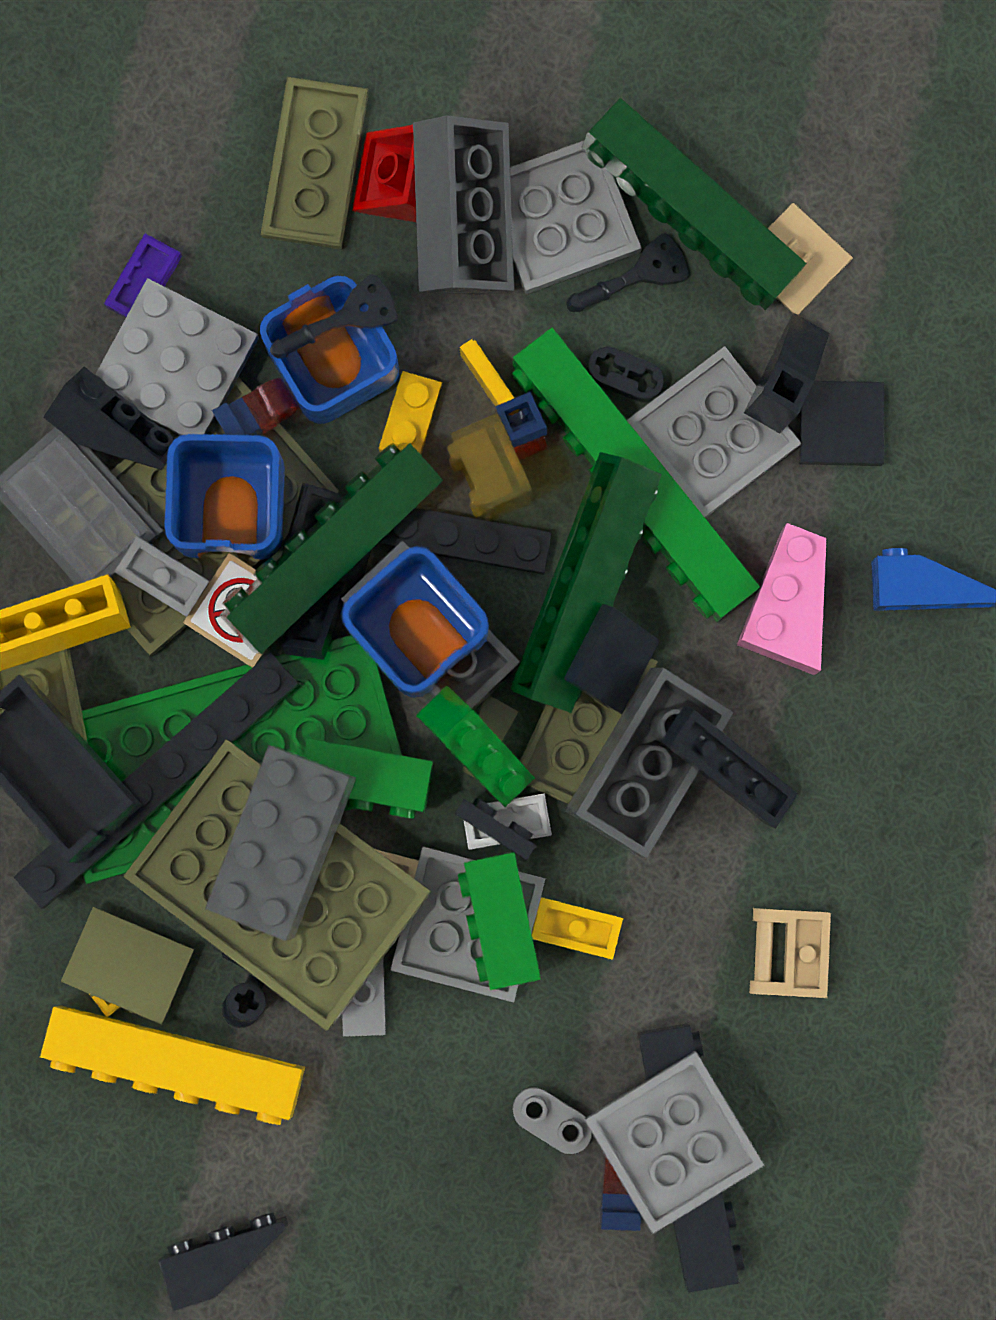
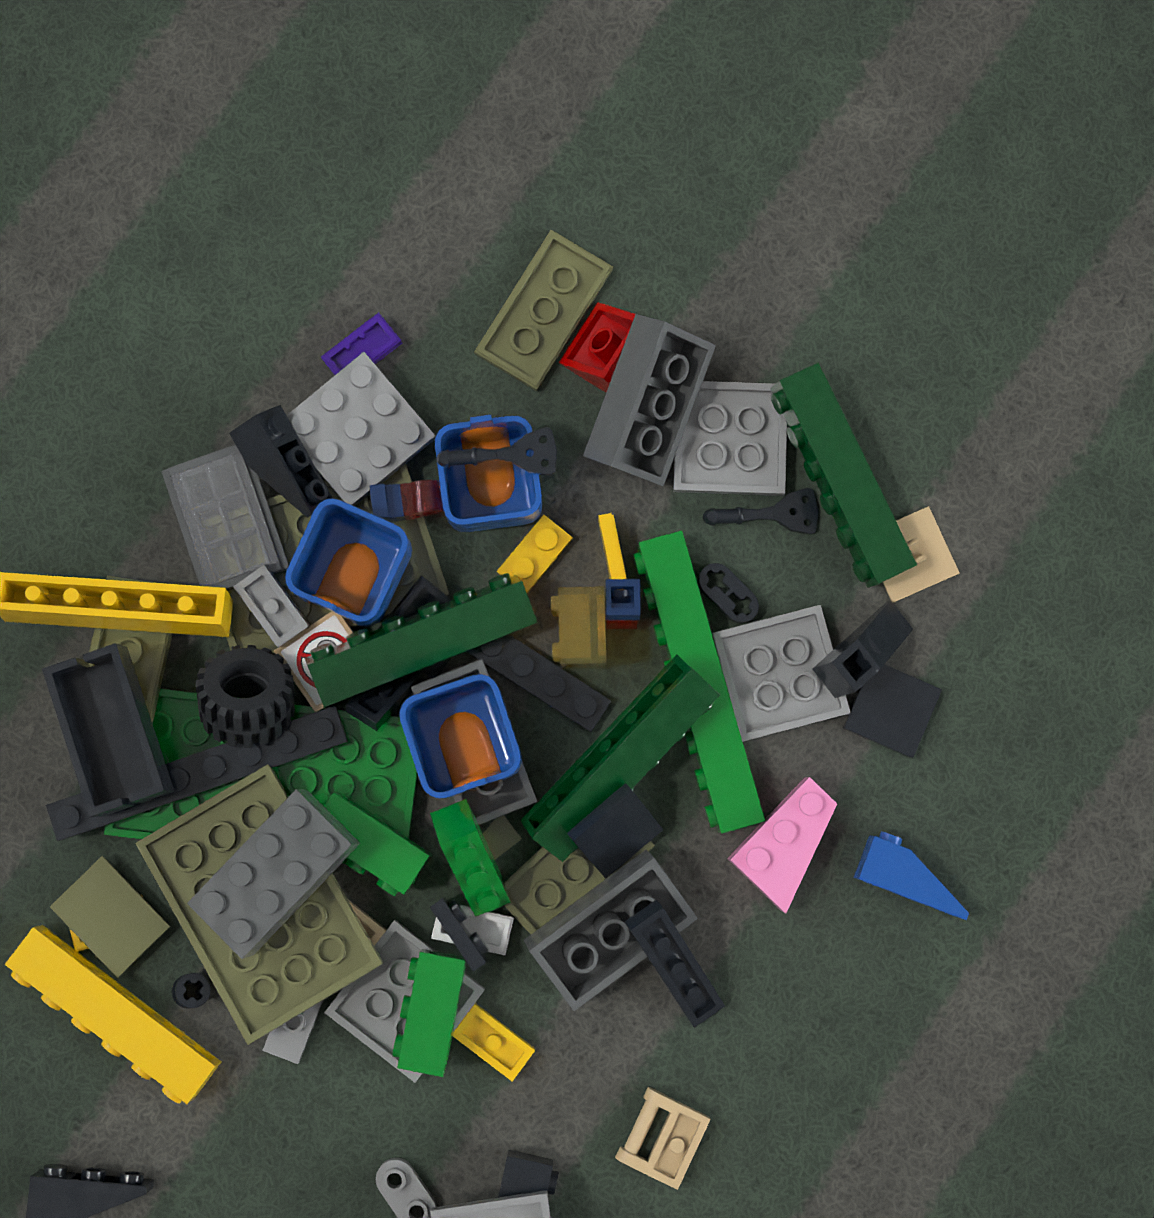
camera: 20 degrees right, 0 degrees up
(174, 678) = (251, 718): none -> black tyre

